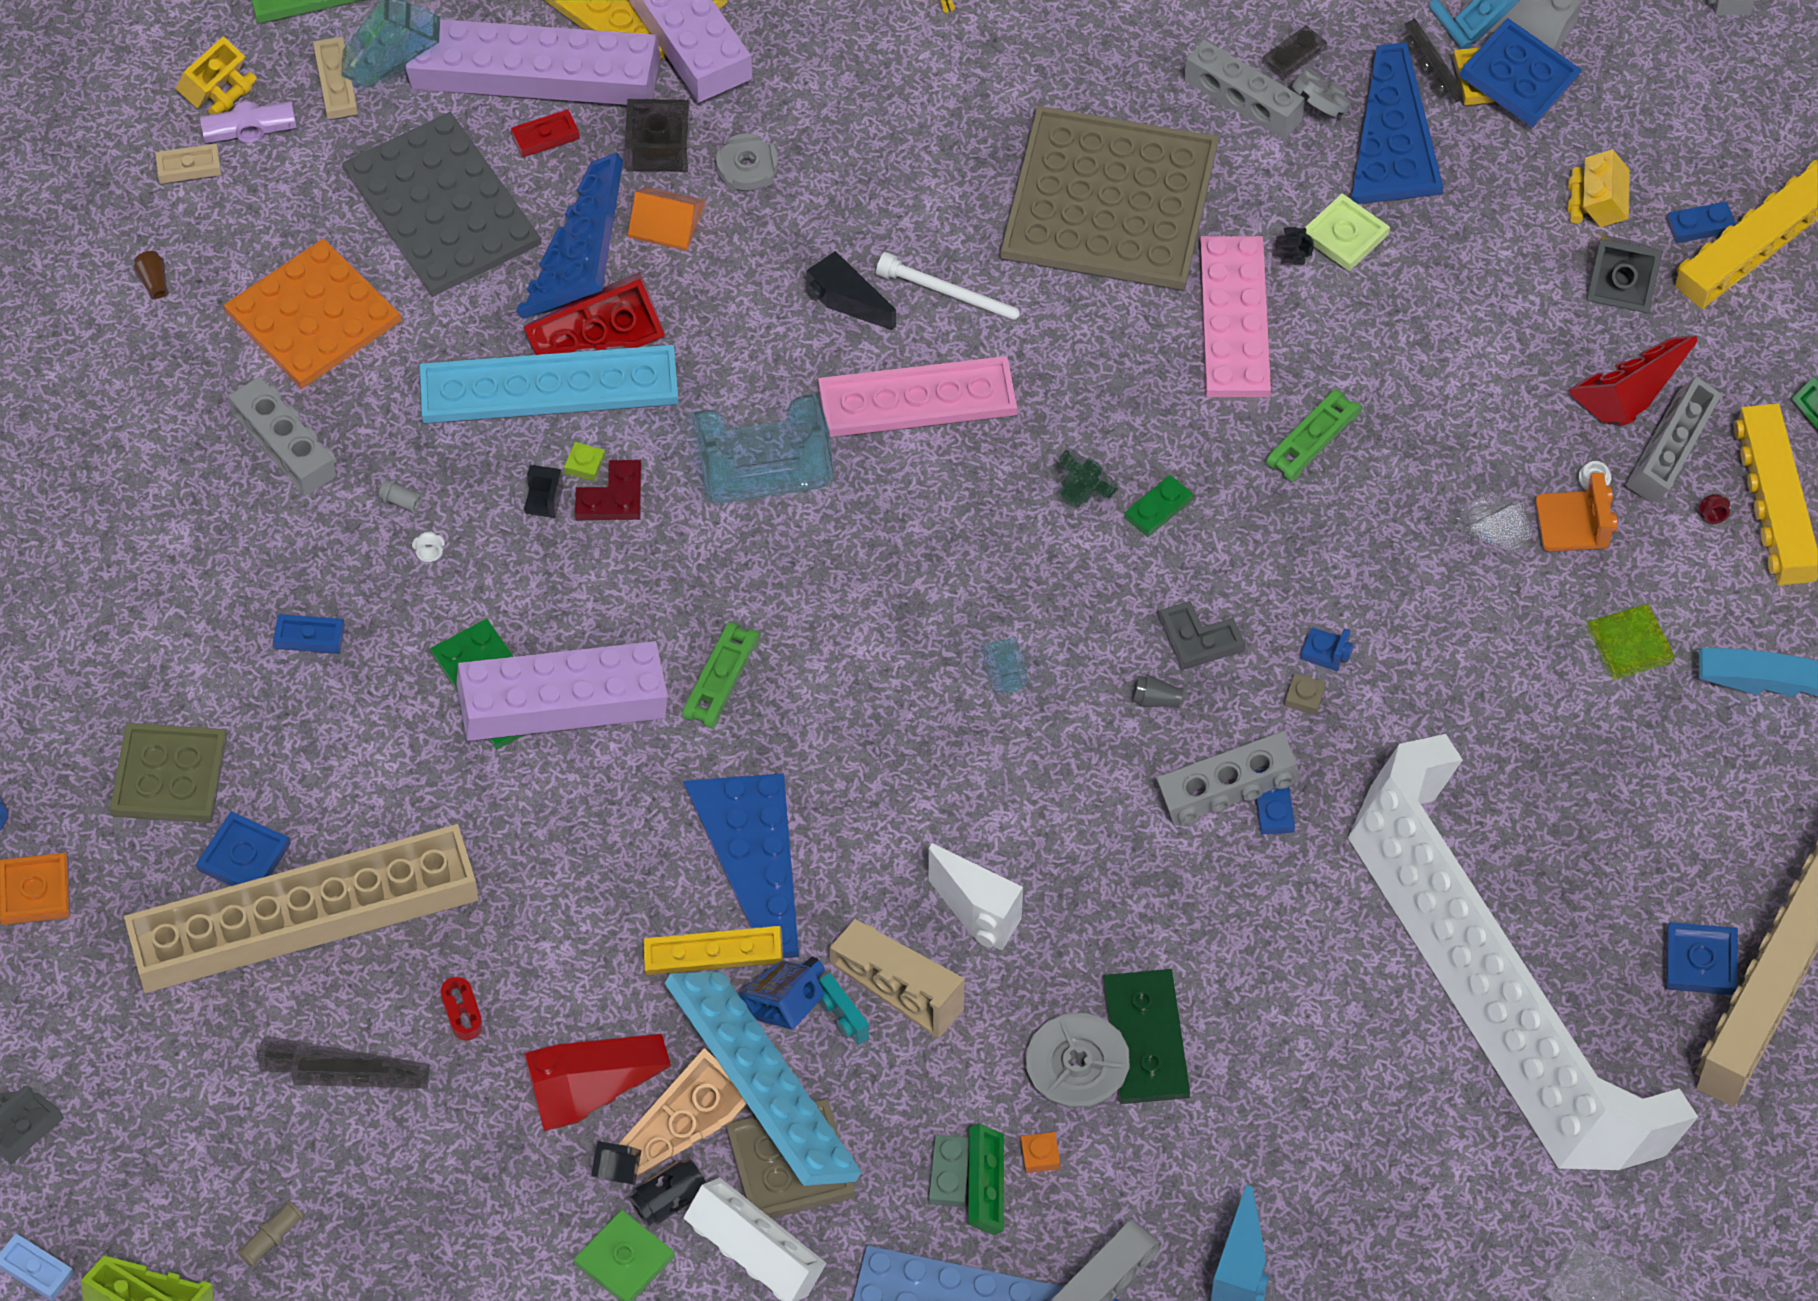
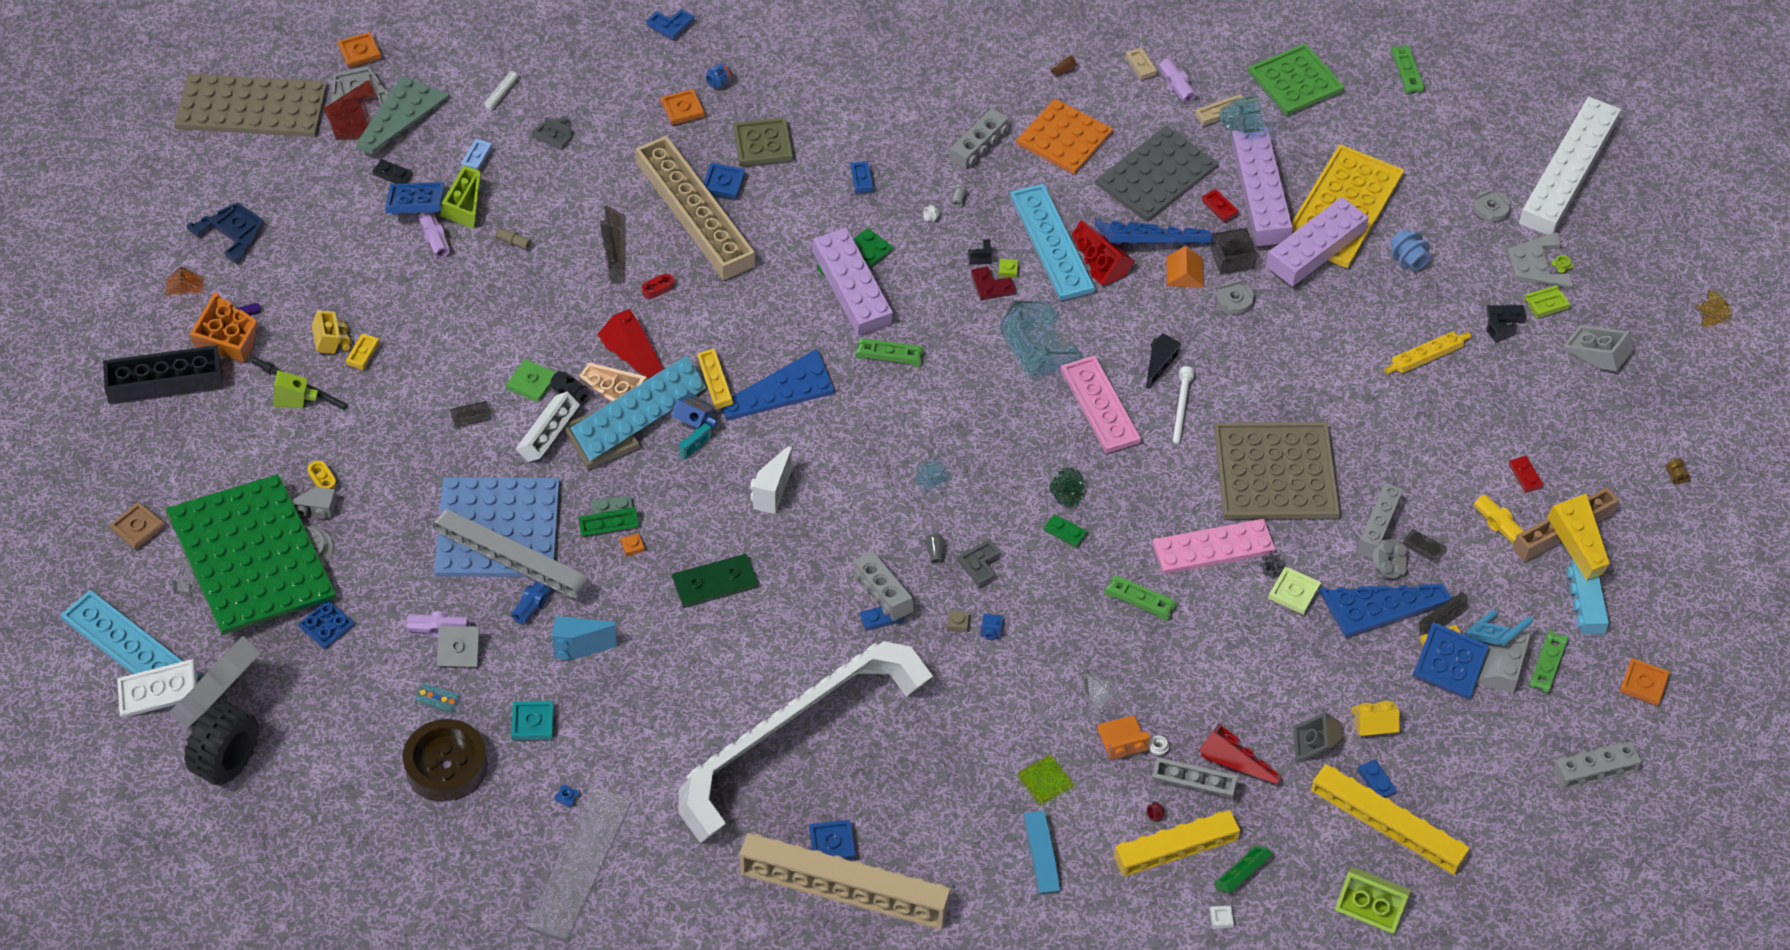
camera: 75 degrees right, 5 degrees down
(211, 73) = (1198, 56): yellow brick -> none
(616, 1163) = (581, 361): black panel -> none
(900, 977) = (717, 462): tan wedge -> none
(1078, 1038) = (688, 538): light grey piece -> none

